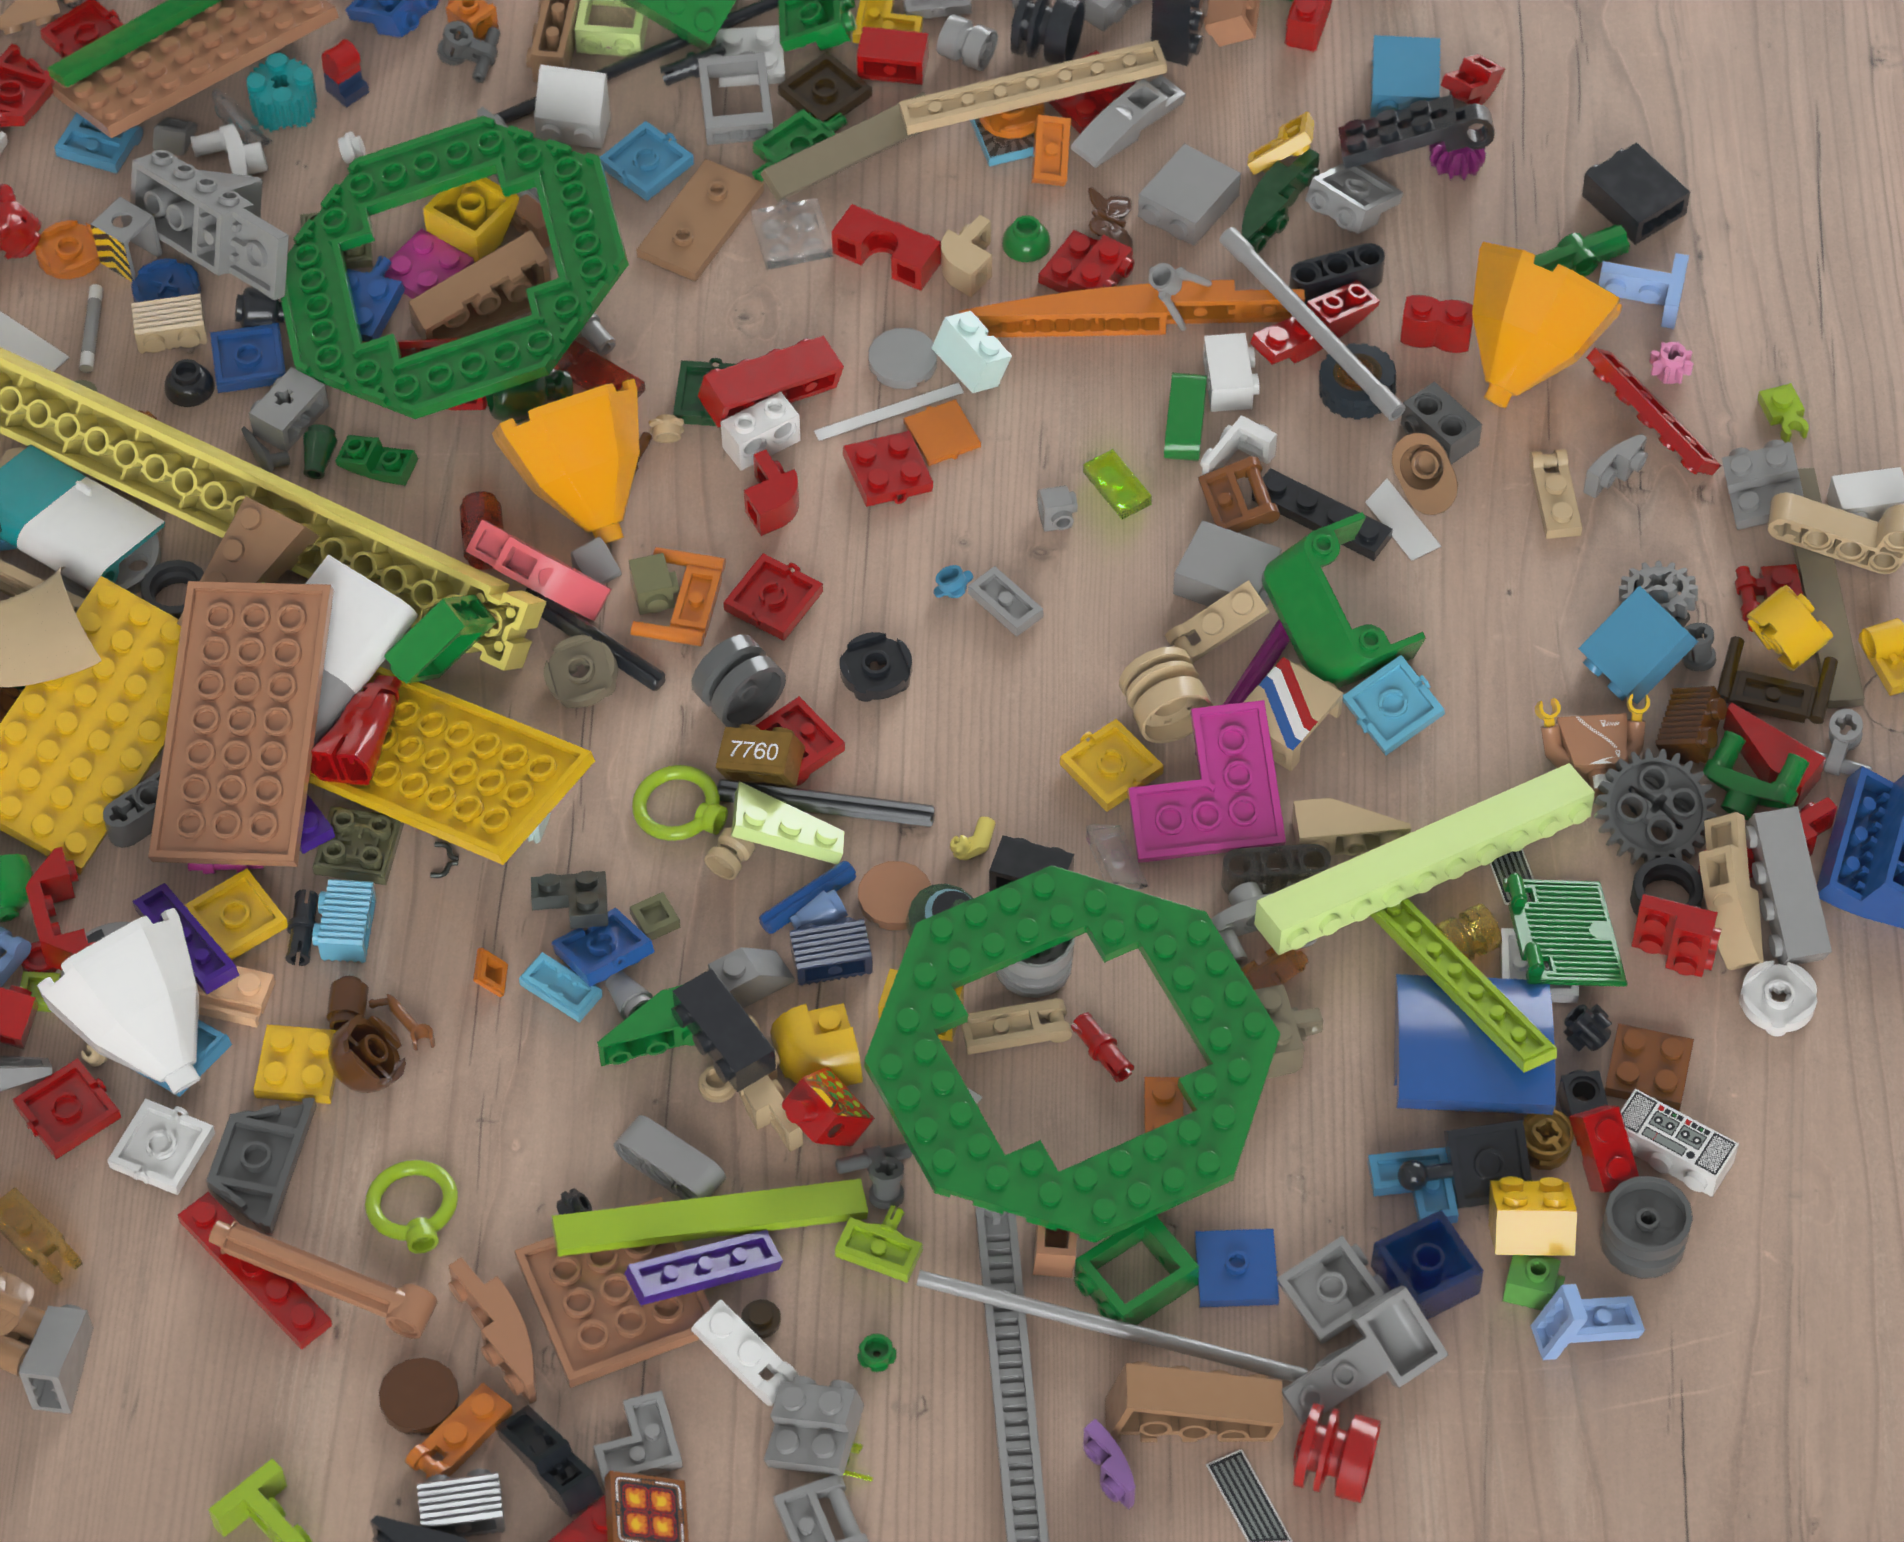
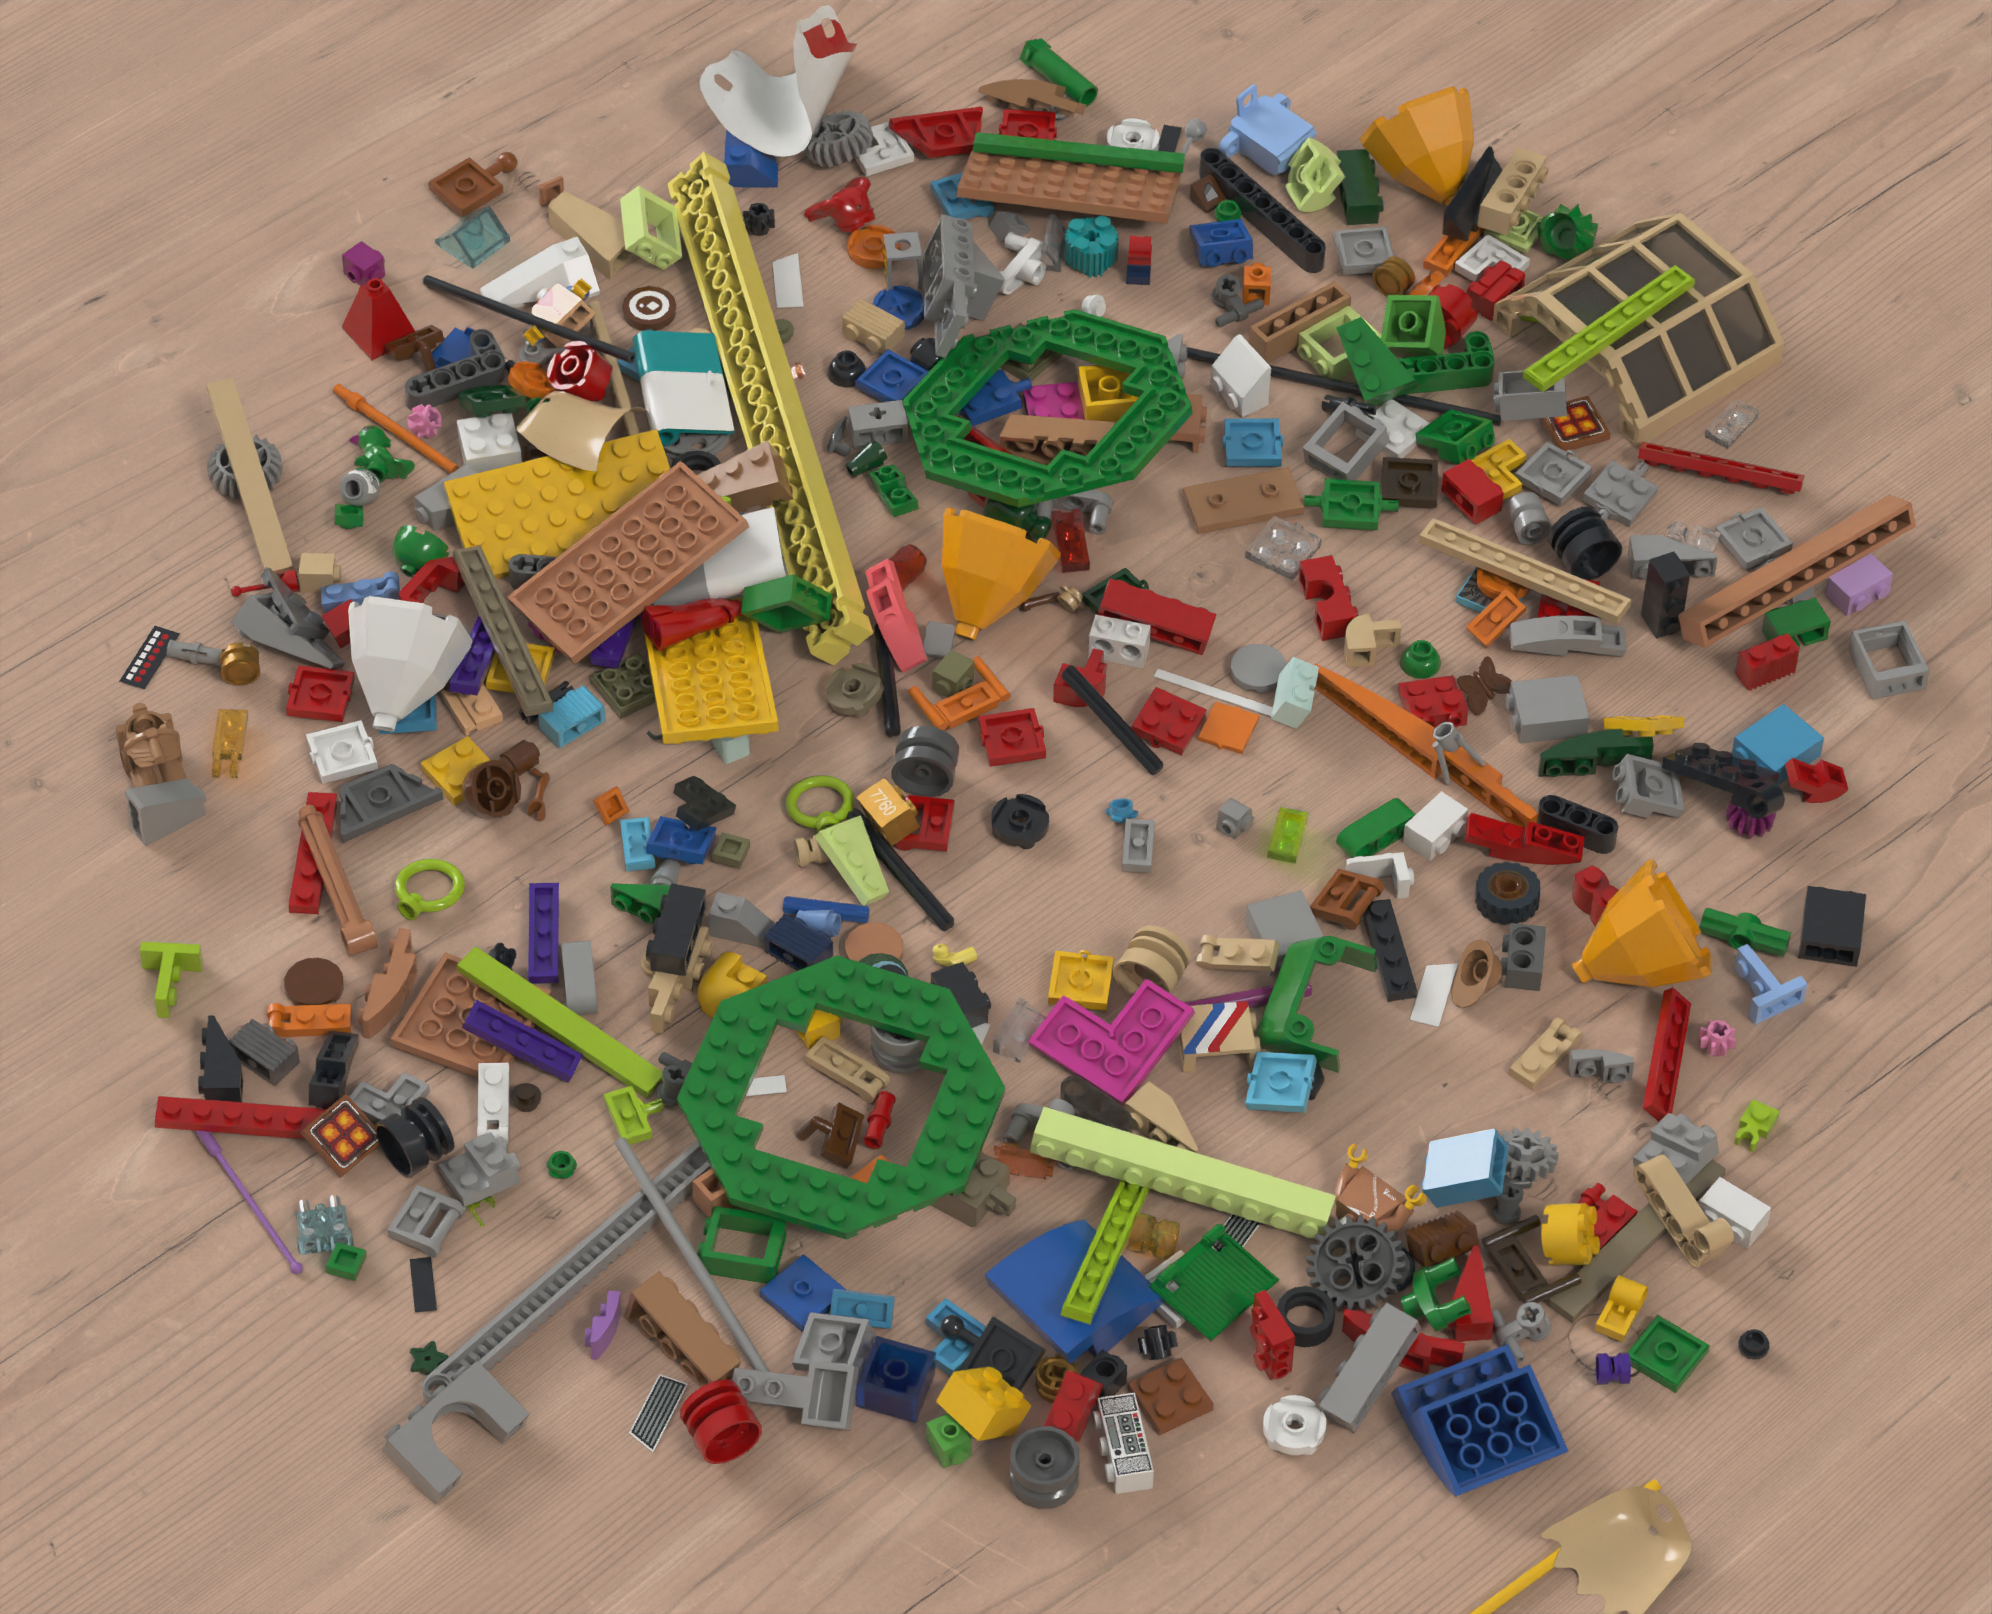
camera: 45 degrees right, 5 degrees down
(91, 328) = (832, 298): light grey bar -> none
(188, 891) = (503, 631): none -> dark tan tile
(580, 1148) = (543, 933): none -> dark purple plate
(722, 1452) = (414, 1137): none -> black wheel
(826, 1109) = (683, 1017): red torso -> none
(836, 153) = (1361, 520): dark tan tile -> none
(848, 505) = (1112, 720): none -> black axle
(1089, 1089) = (841, 1133): none -> reddish brown plate
(1310, 1231) = (863, 1305): none -> dark azure plate
(1378, 393) = (1499, 904): light grey piece -> none
(1579, 1320) = (949, 1485): light blue bracket -> none
(1729, 891) = (1324, 1345): tan slope -> none

